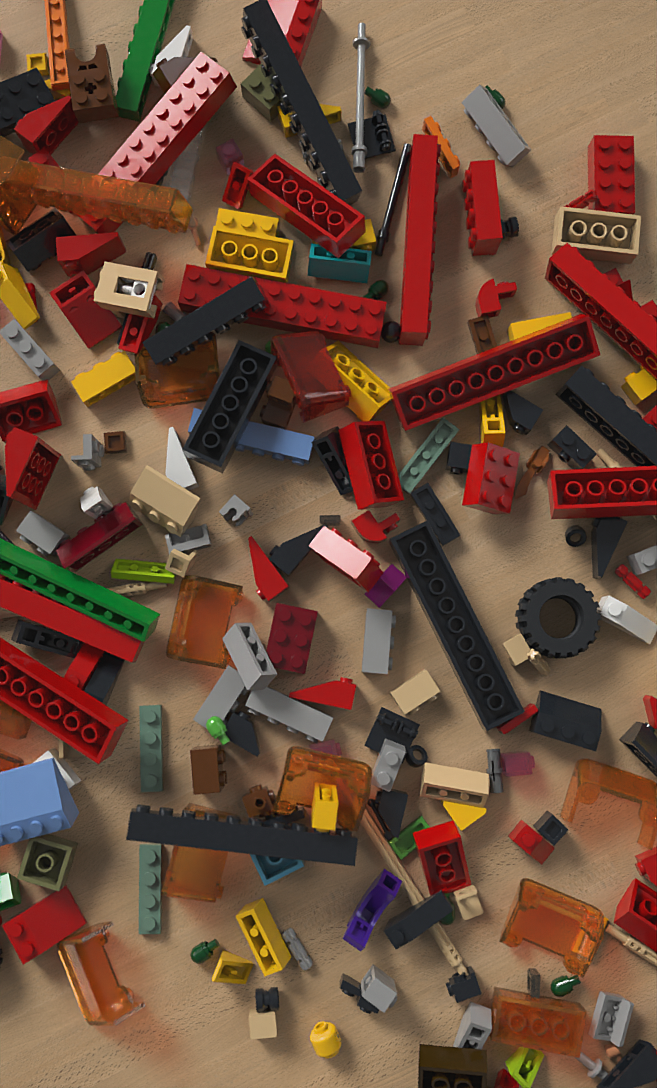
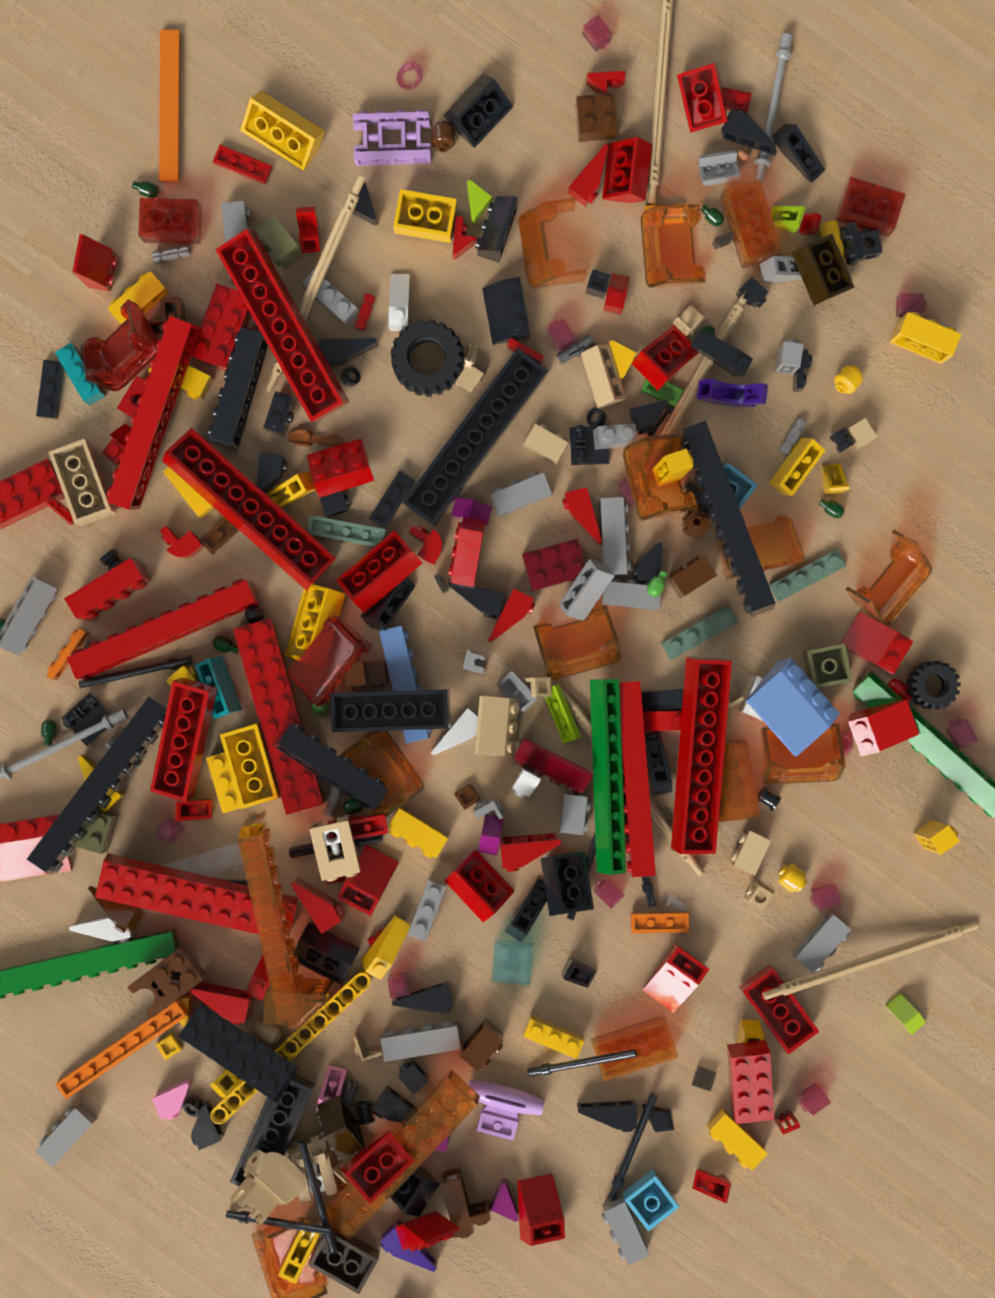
camera: 115 degrees left, 5 degrees up
(65, 444) = (490, 834): none -> magenta slope

